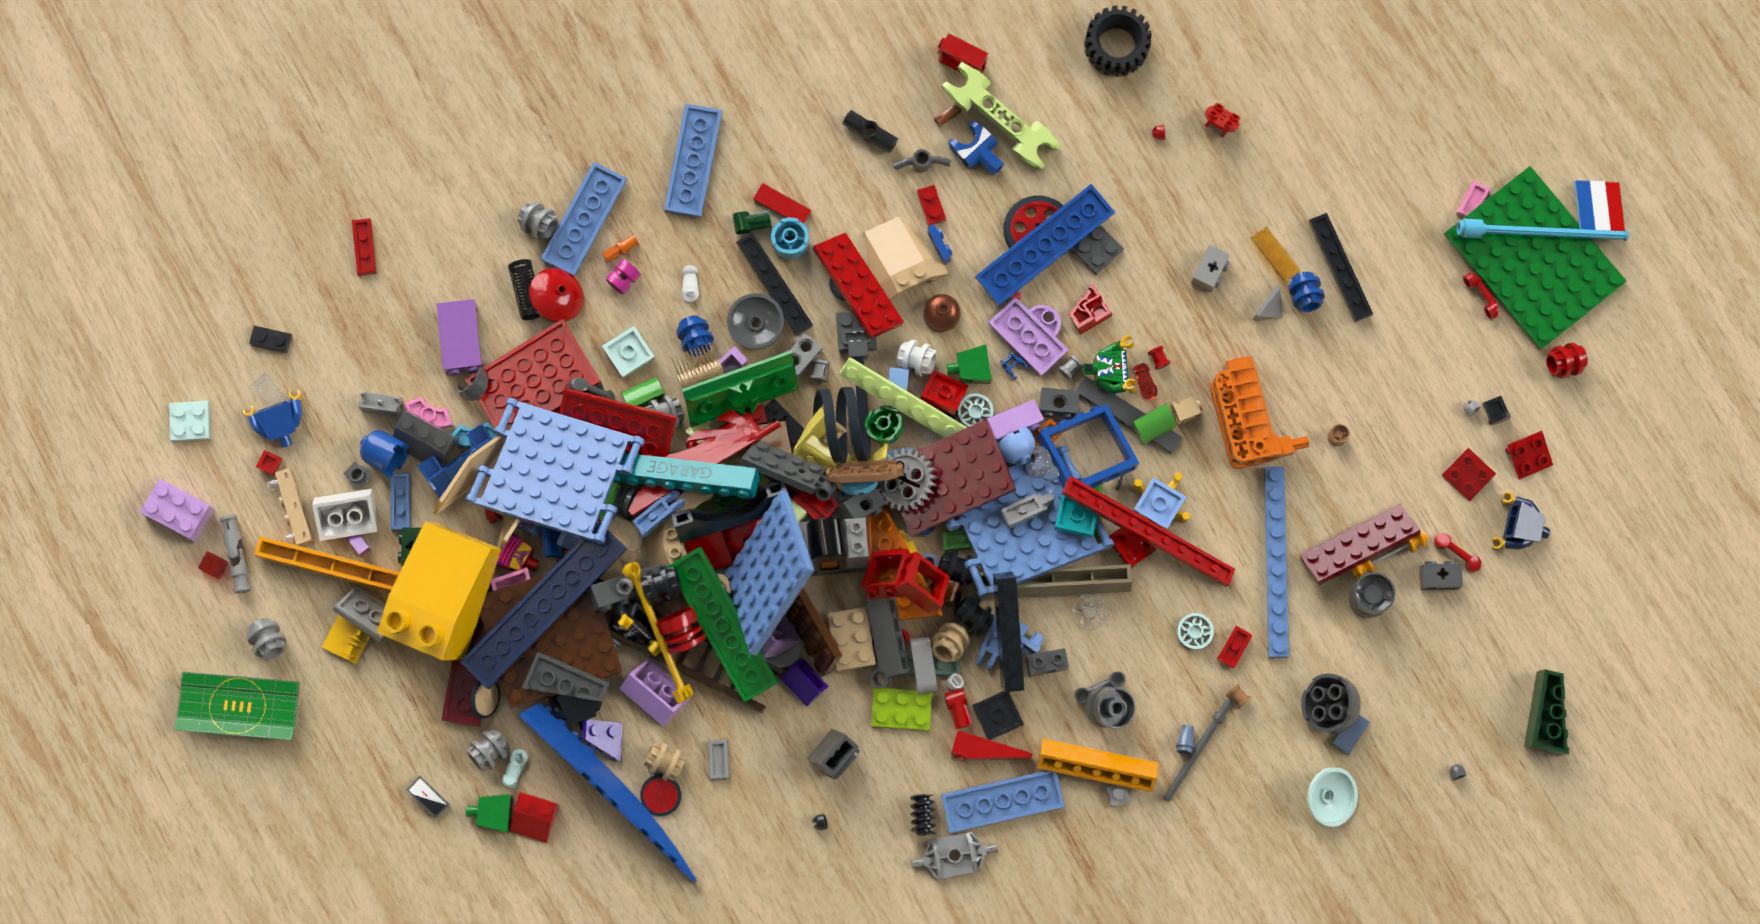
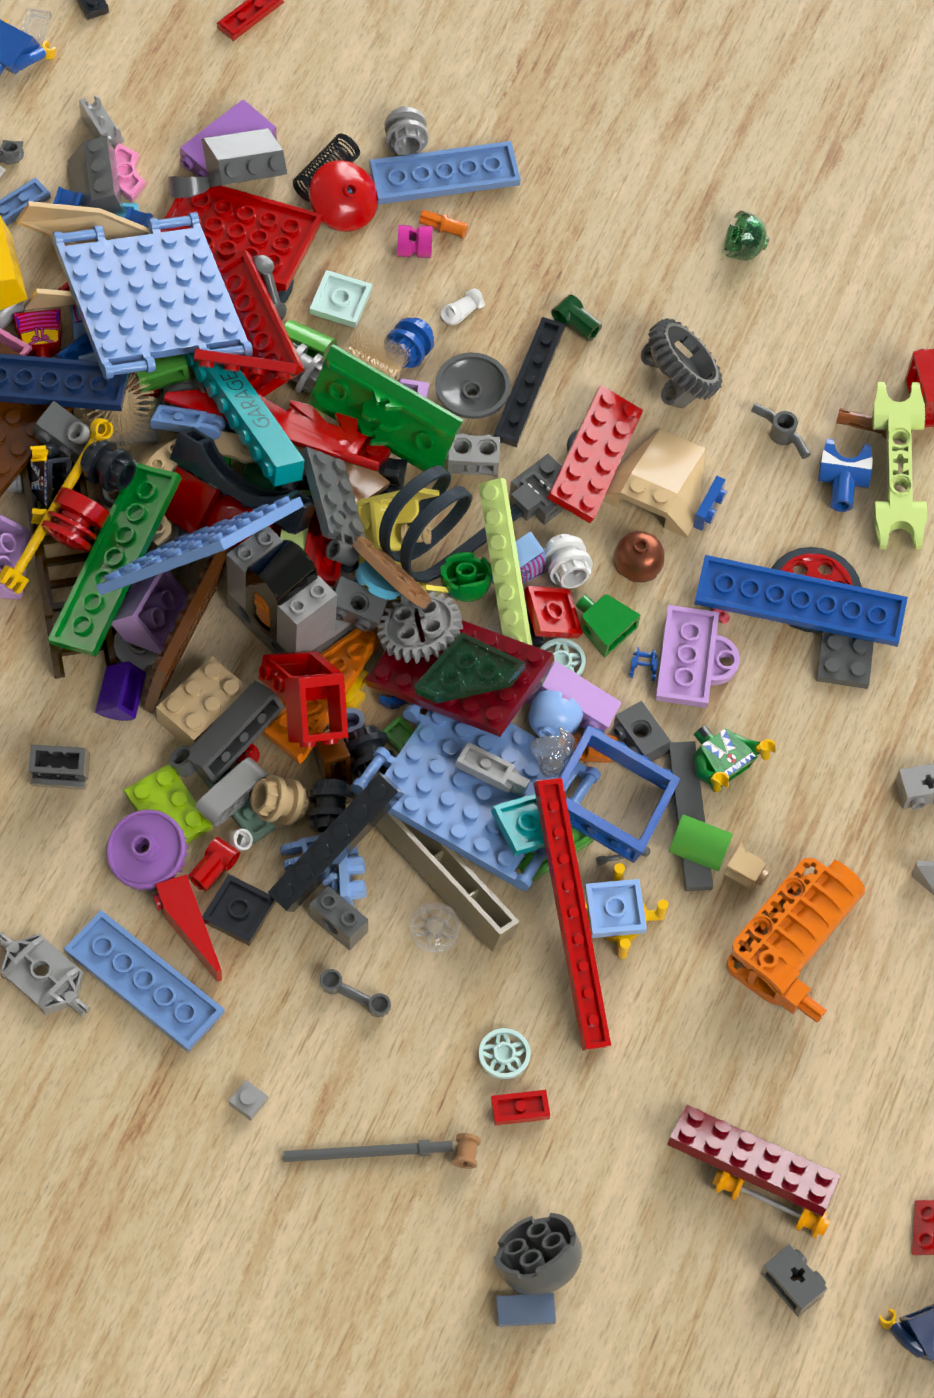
camera: 50 degrees right, 15 degrees down
(383, 452) = (50, 154): blue cylinder -> none
(485, 337) = (243, 157): none -> dark grey slope
(659, 445) = (255, 365): none -> red plate
(693, 160) = (592, 226): medium blue plate -> none
(774, 77) = (746, 237): none -> clear green cylinder
(781, 204) = (619, 335): red tile -> none
(790, 228) = (588, 360): medium azure brick -> none
(820, 370) = (471, 482): light grey bush -> none
(842, 178) = (688, 376): none -> dark grey piece
(860, 125) = (771, 371): black piece -> none
(922, 814) = (62, 905): black piece -> none
(925, 756) = (159, 862): none -> medium lavender wheel
(931, 205) = (746, 471): red plate -> none
(962, 475) = (467, 670): none -> clear green plate
(1071, 367) = (690, 719): light grey bush -> none
(1089, 311) = (769, 698): red slope -> none
(1097, 765) = (262, 1050): light orange brick -> none
(1110, 707) = (339, 1013): dark grey wheel -> none
(1130, 547) = (540, 916): red hinge -> none
(1146, 384) = (740, 811): clear red piece -> none
(1159, 357) = (781, 800): red bush -> none
(1185, 743) = (368, 1129): sand blue cone -> none
(1276, 562) = (656, 1087): medium blue plate -> none
(1339, 431) = (863, 1044): medium nougat wheel -> none
(1339, 798) = (435, 1353): light aqua dish -> none
(1372, 595) = (705, 1211): dark grey wheel -> none
(1443, 541) = (842, 1306): red bar -> none

